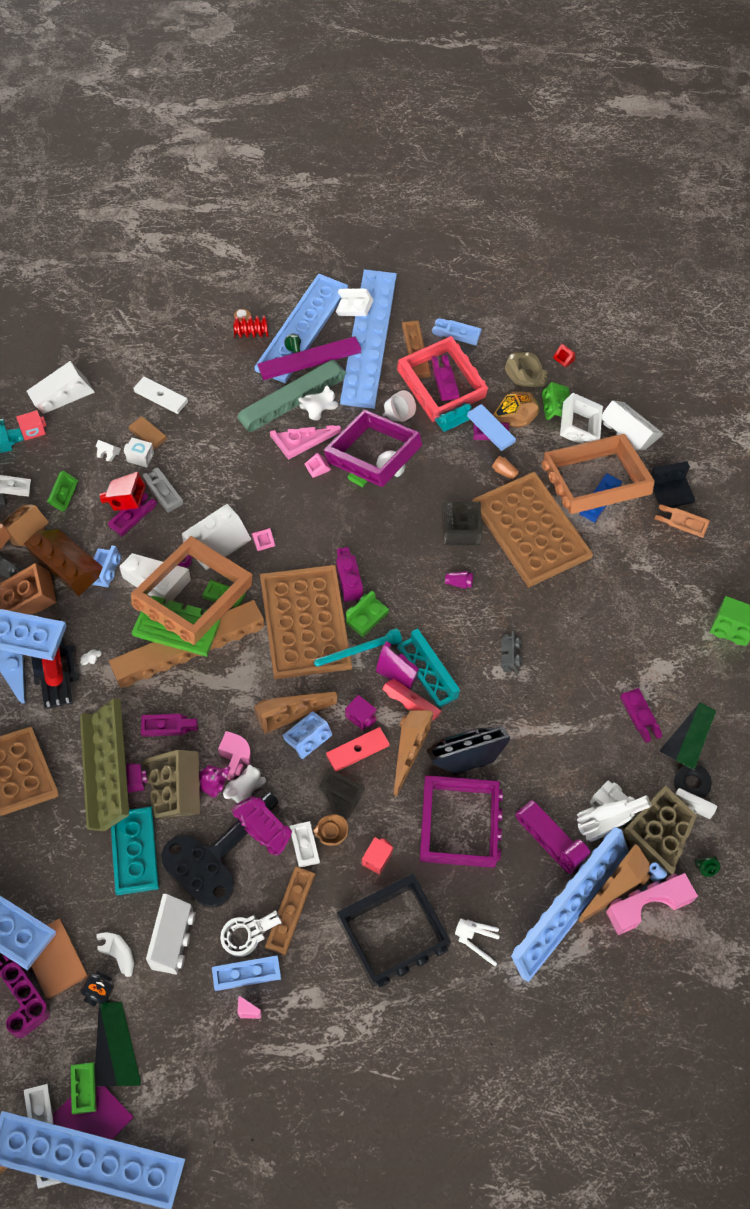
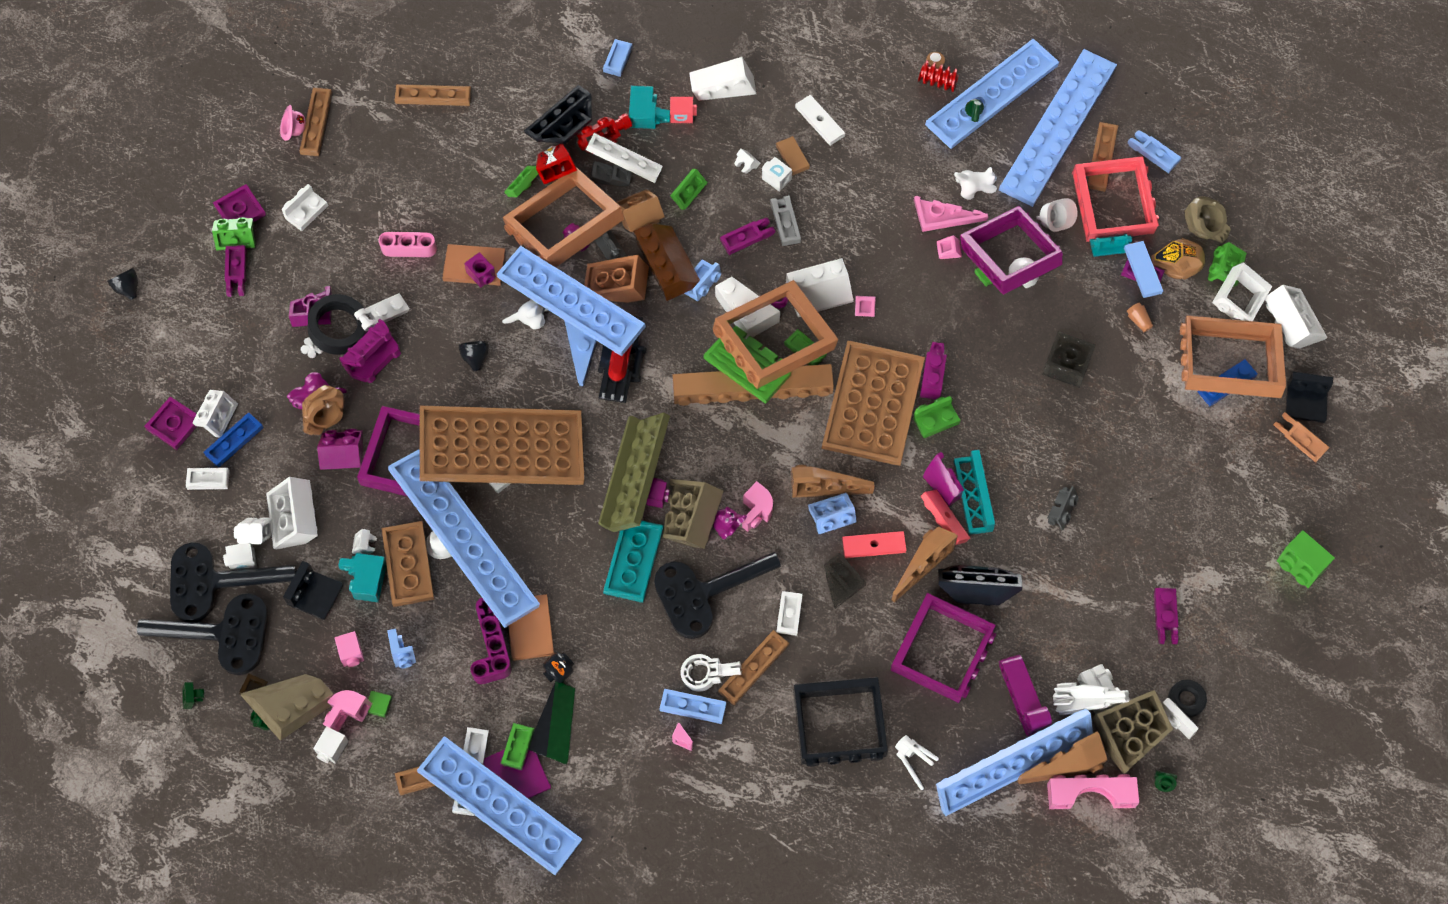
camera: 25 degrees right, 5 degrees up
(91, 657) = (657, 364): white plant -> none
(118, 949) = (587, 639): white piece -> none
(124, 492) = (747, 211): red torso -> none
(167, 725) = (704, 455): magenta hinge -> none
(170, 935) = (638, 646): white slope -> none
(244, 785) = (753, 539): white animal -> none
(262, 824) = (756, 579): magenta piece -> none
(287, 397) = (945, 165): sand green beam -> none
(309, 358) = (985, 130): magenta tile -> none
(332, 830) = (819, 609): medium nougat hair -> none
(354, 302) = (1057, 84): white bracket -> none
(361, 713) = (891, 511): magenta brick -> none
(377, 855) = (852, 649): coral brick -> none
(393, 637) = (952, 449): teal piece -> none
(445, 379) = (1115, 202): magenta hinge -> none
(460, 579) = (1044, 416): magenta cone -> none
(532, 529) = (1139, 390): medium nougat plate -> none
(564, 355) = (1258, 216): red slope -> none
(657, 872) = (1110, 766): light blue arm -> none
(690, 737) = (1203, 656): dark green sticker -> none

